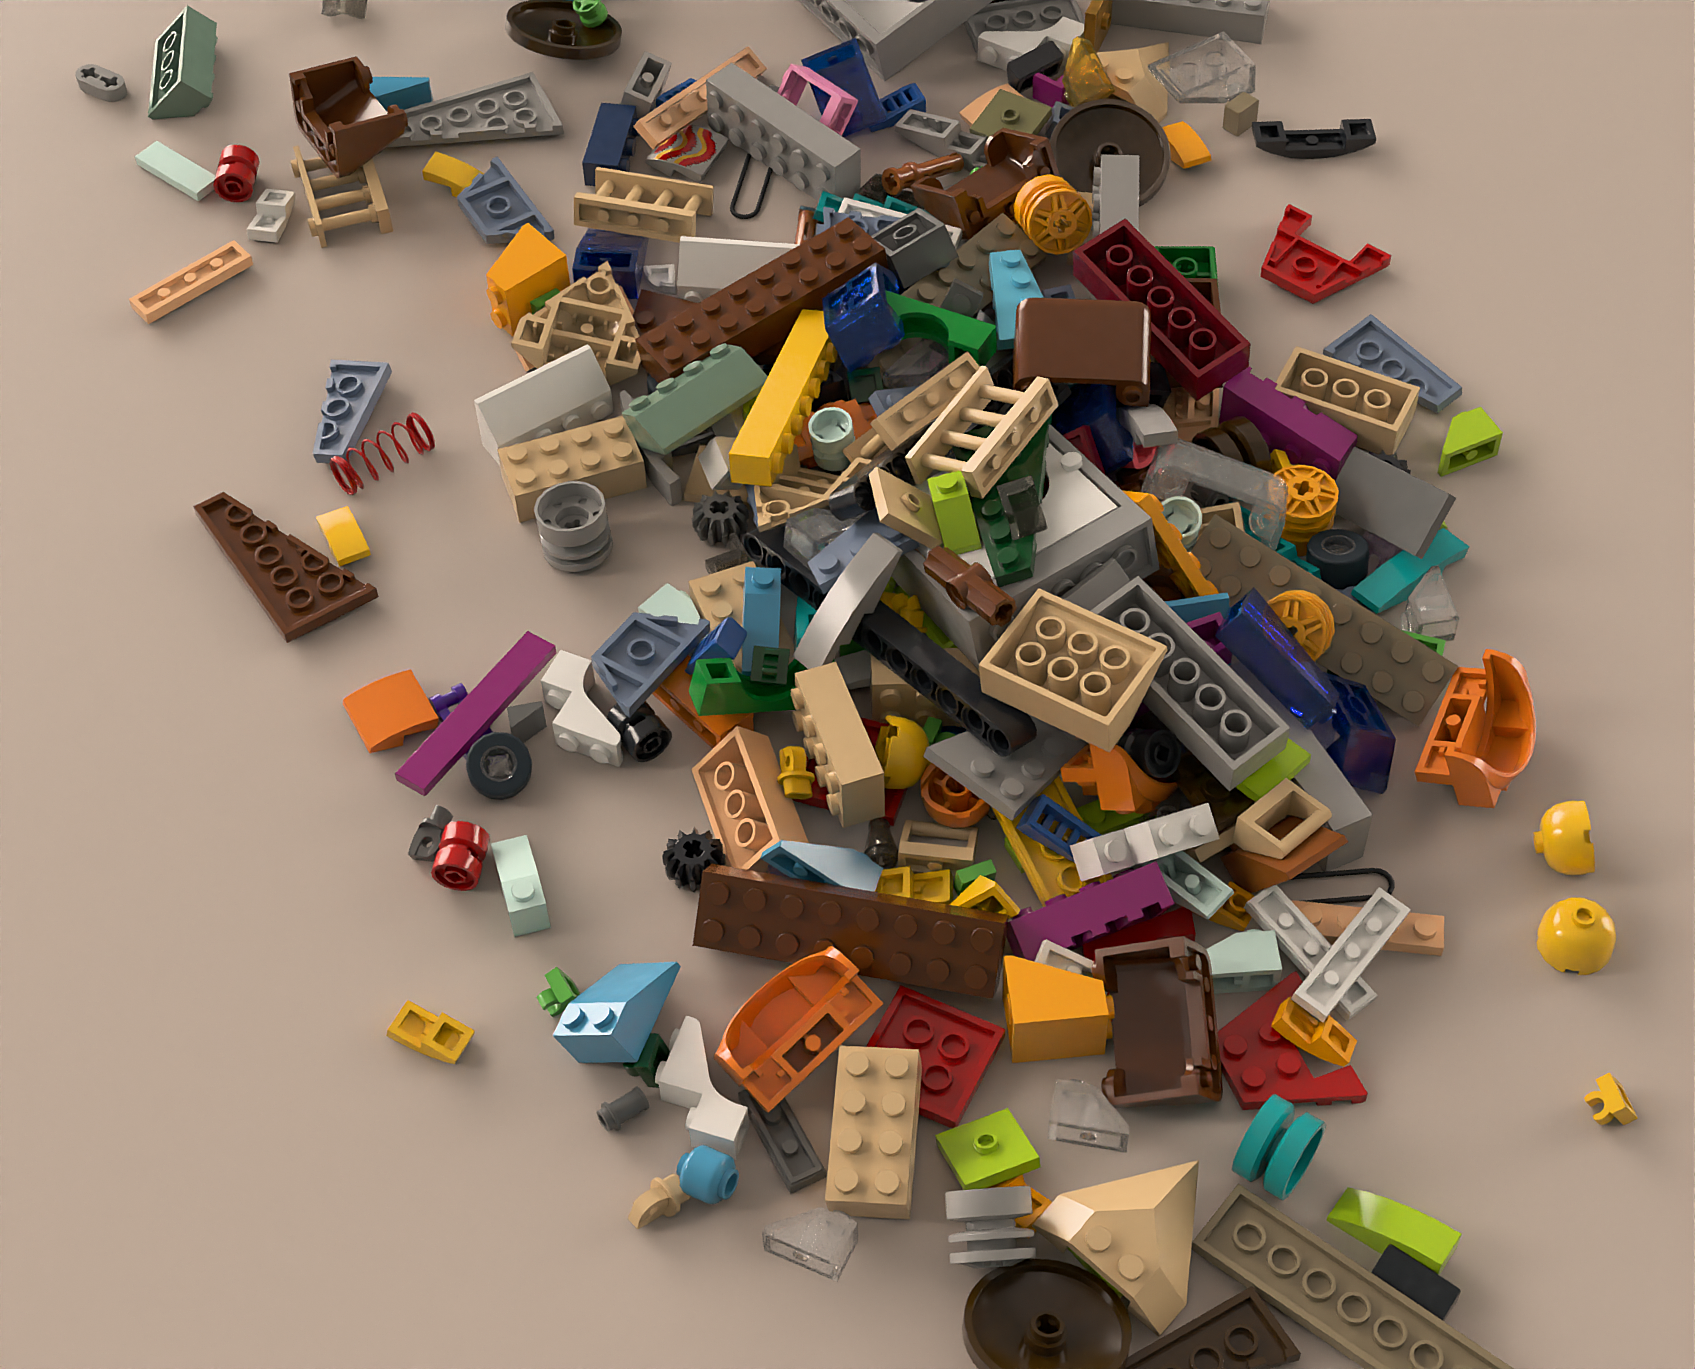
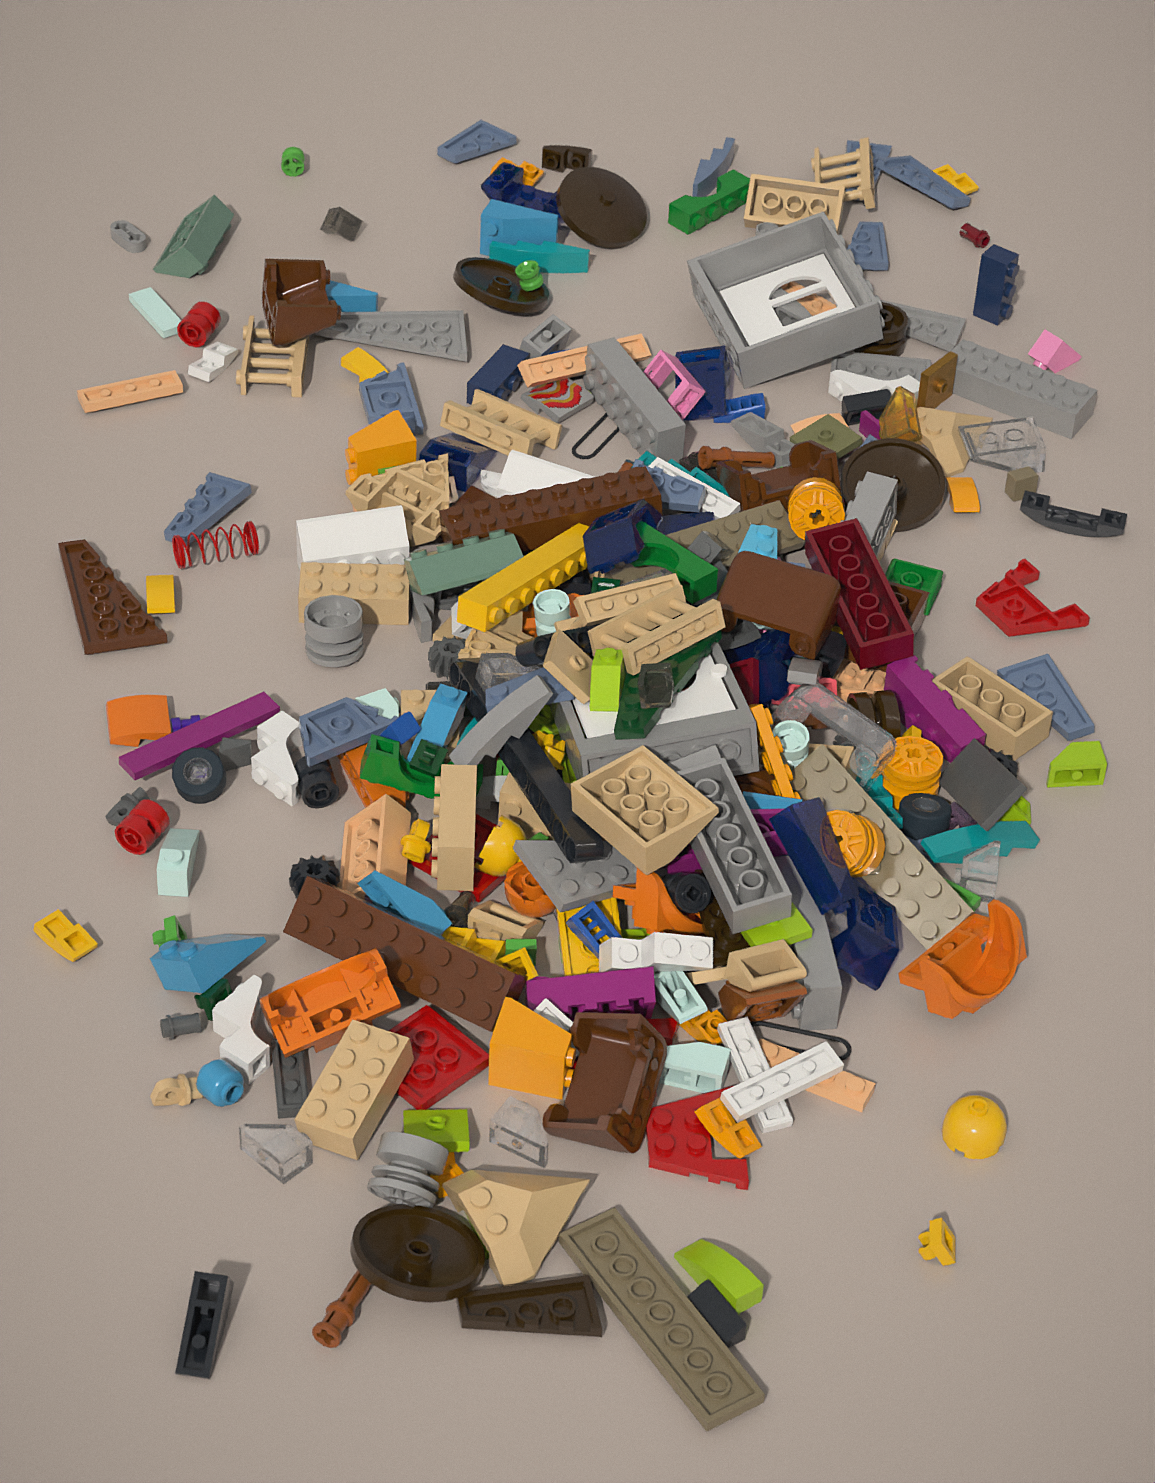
camera: 15 degrees right, 10 degrees down
(916, 246) = (690, 504): dark grey slope -> none
(969, 586) = (591, 730): reddish brown piece -> none
(1278, 1147) = (654, 1188): teal wheel -> none
(1566, 838) = (999, 1056): yellow cylinder -> none

